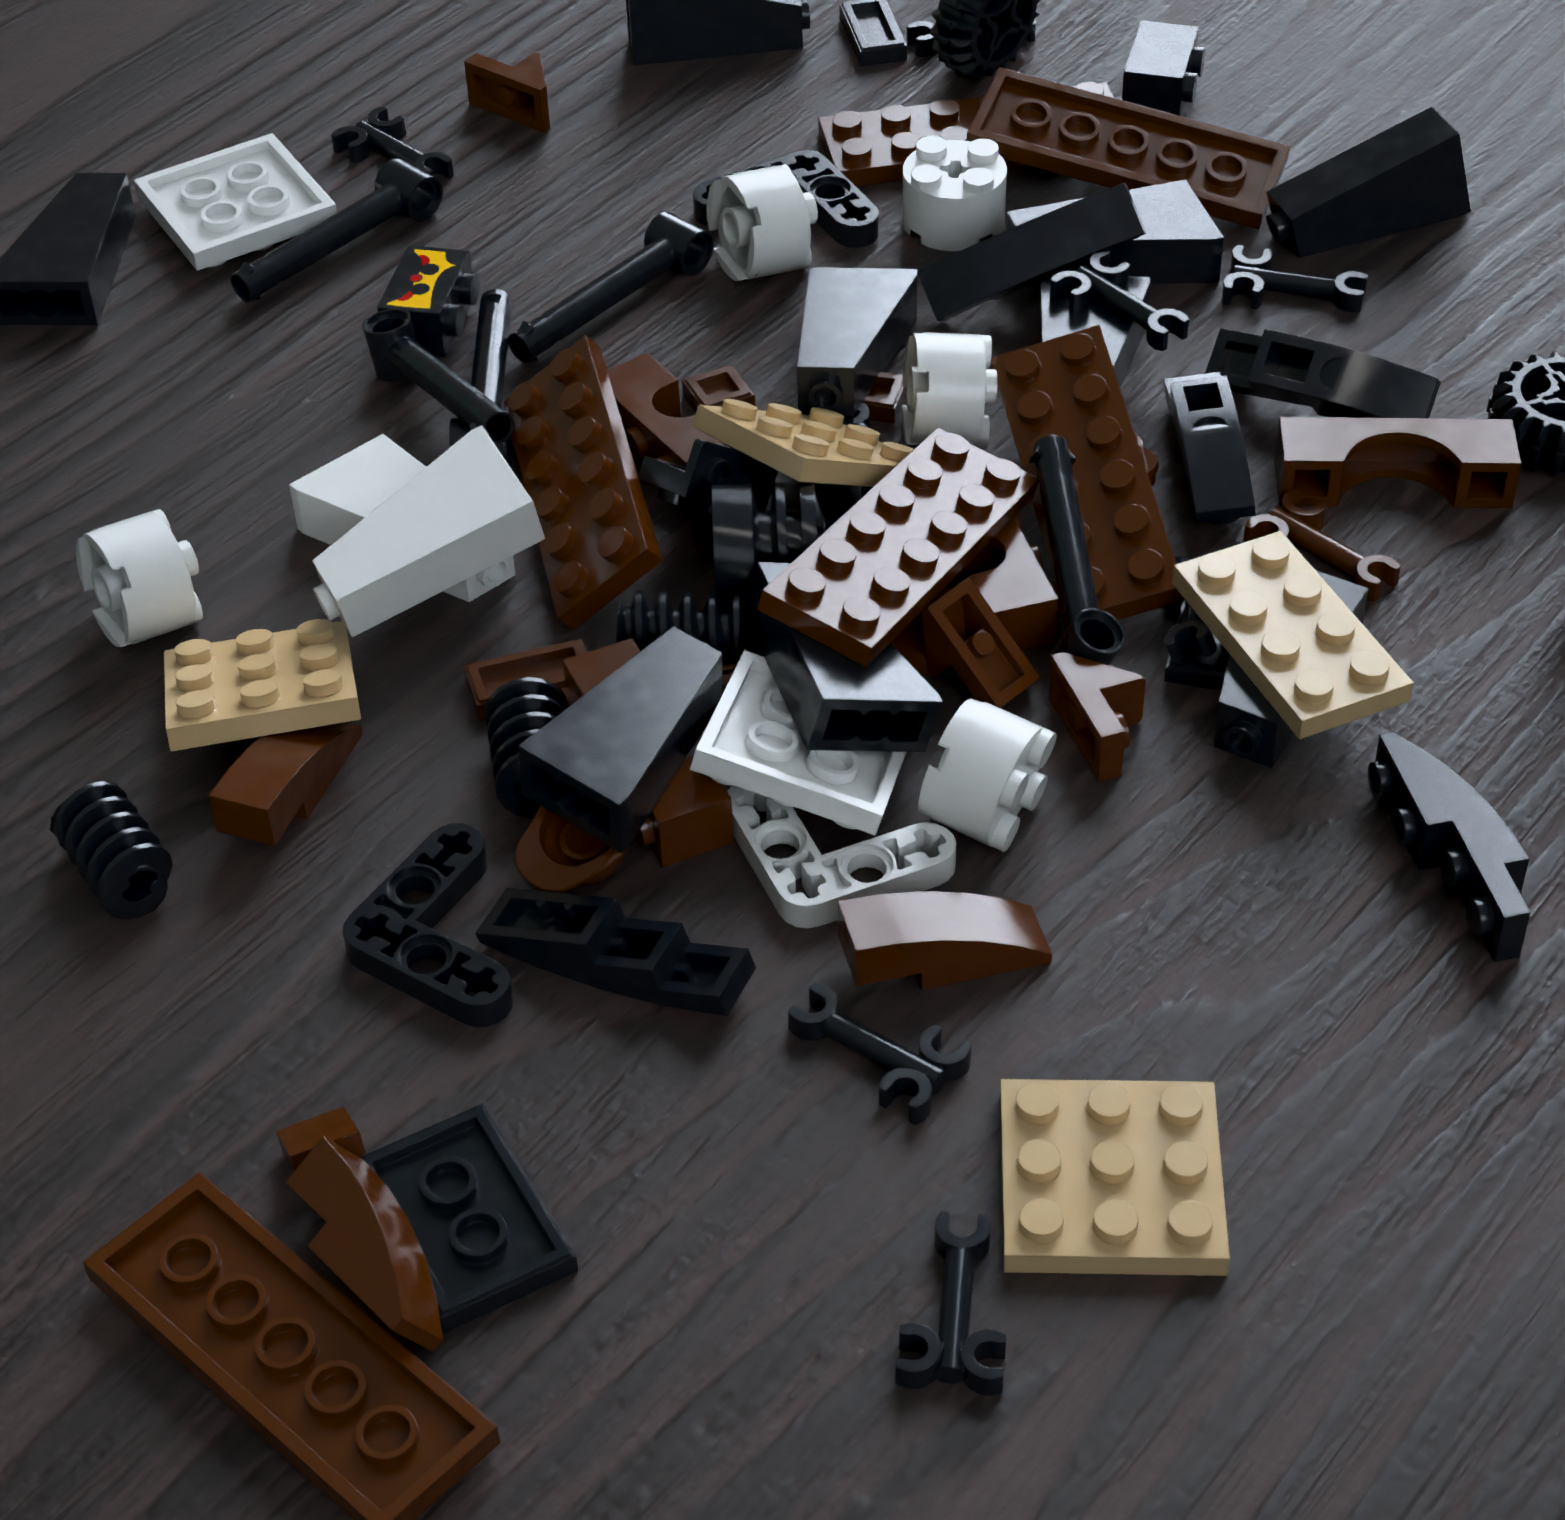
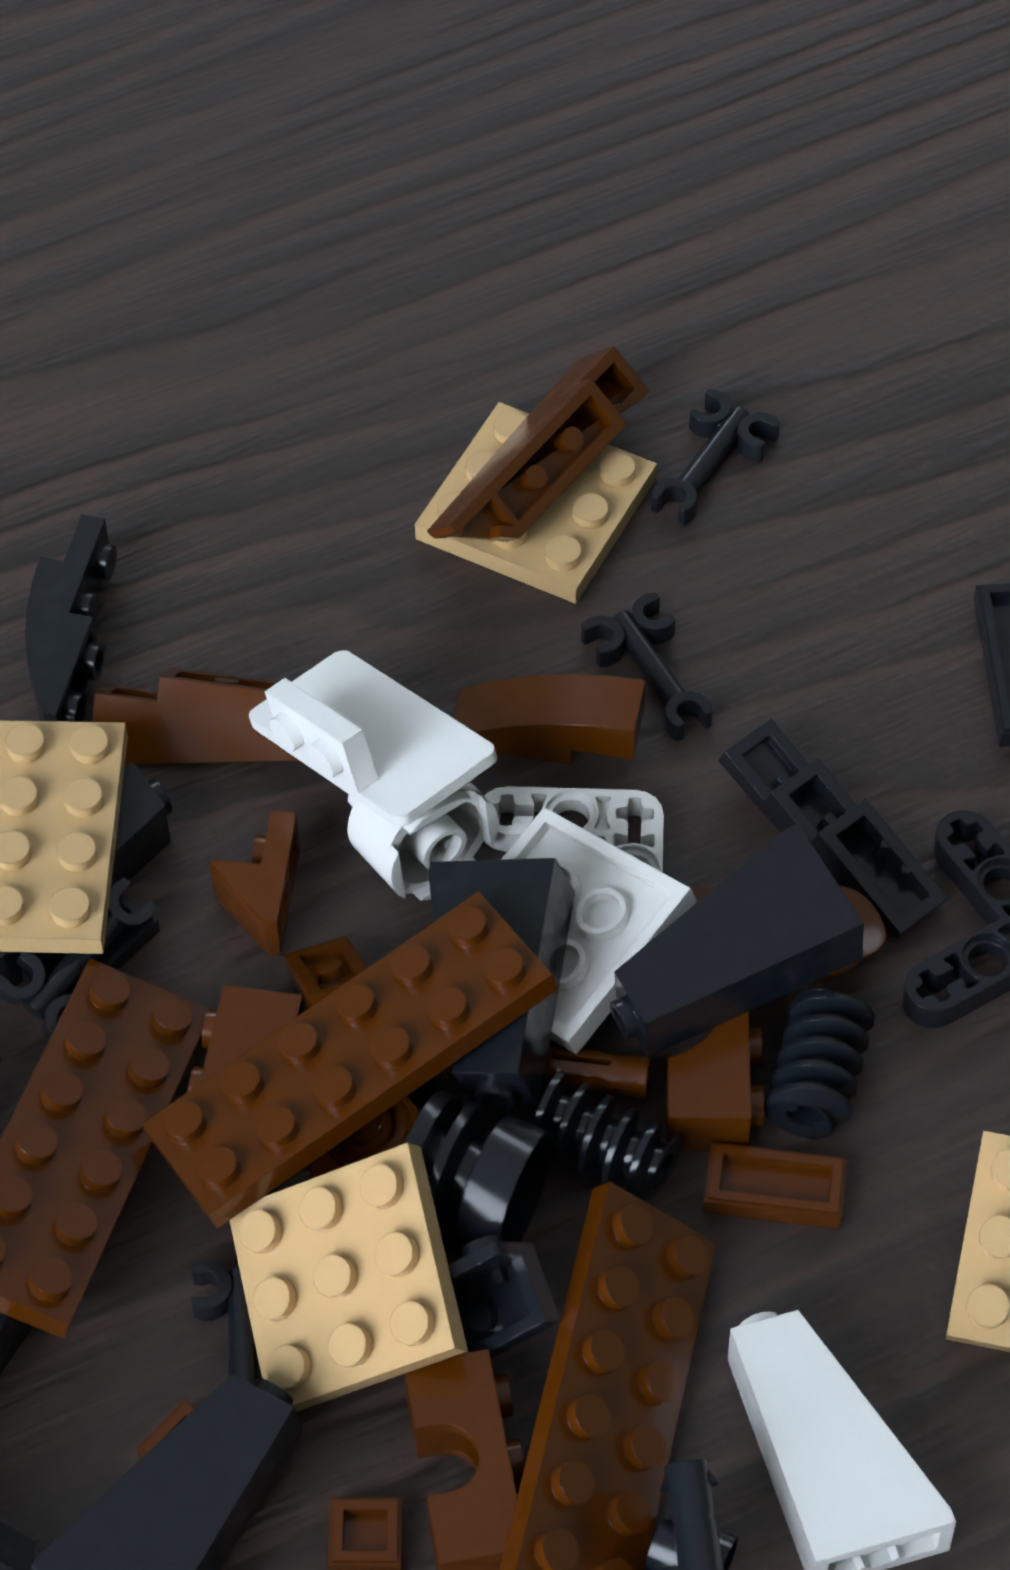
camera: 155 degrees left, 10 degrees up
(428, 536) = (829, 1310): white slope -> none
(948, 386) = (132, 1339): white brick -> none
(1072, 746) = (372, 737): none -> white bracket
(1088, 630) = (228, 952): black piece -> none
(1125, 1184) = (545, 451): none -> reddish brown wedge
(1235, 842) = (190, 719): none -> reddish brown wedge

